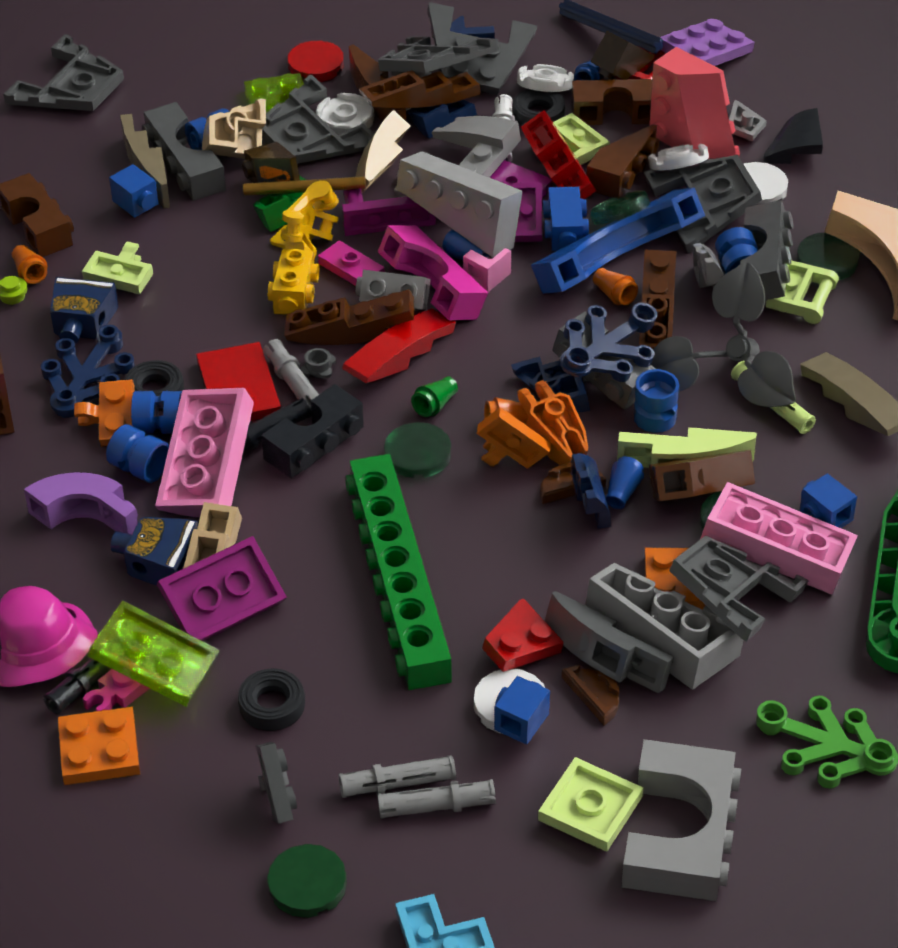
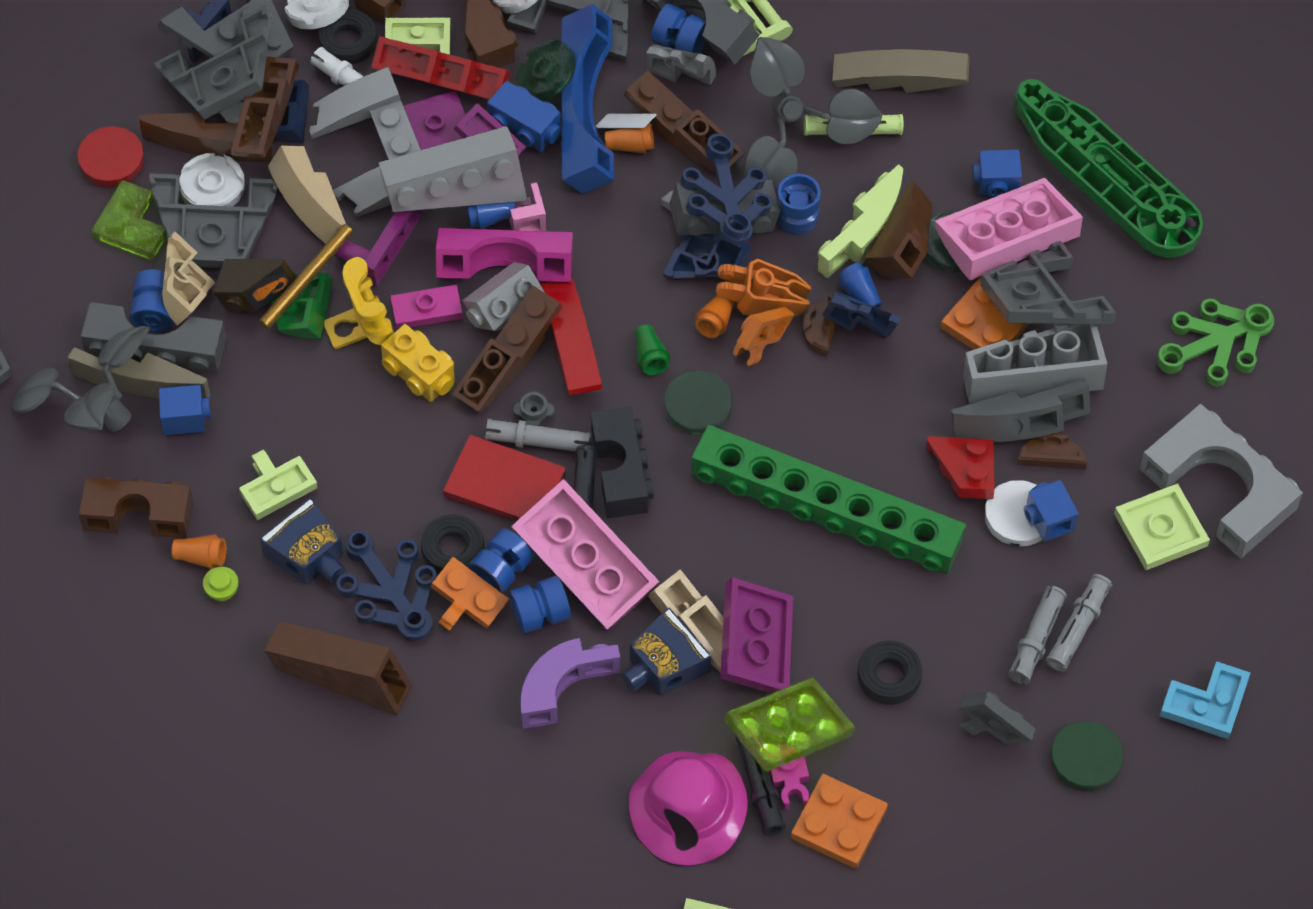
camera: 55 degrees left, 15 degrees up
(100, 155) = (102, 402): none -> dark grey plant
(625, 271) = (625, 121): none -> white sticker

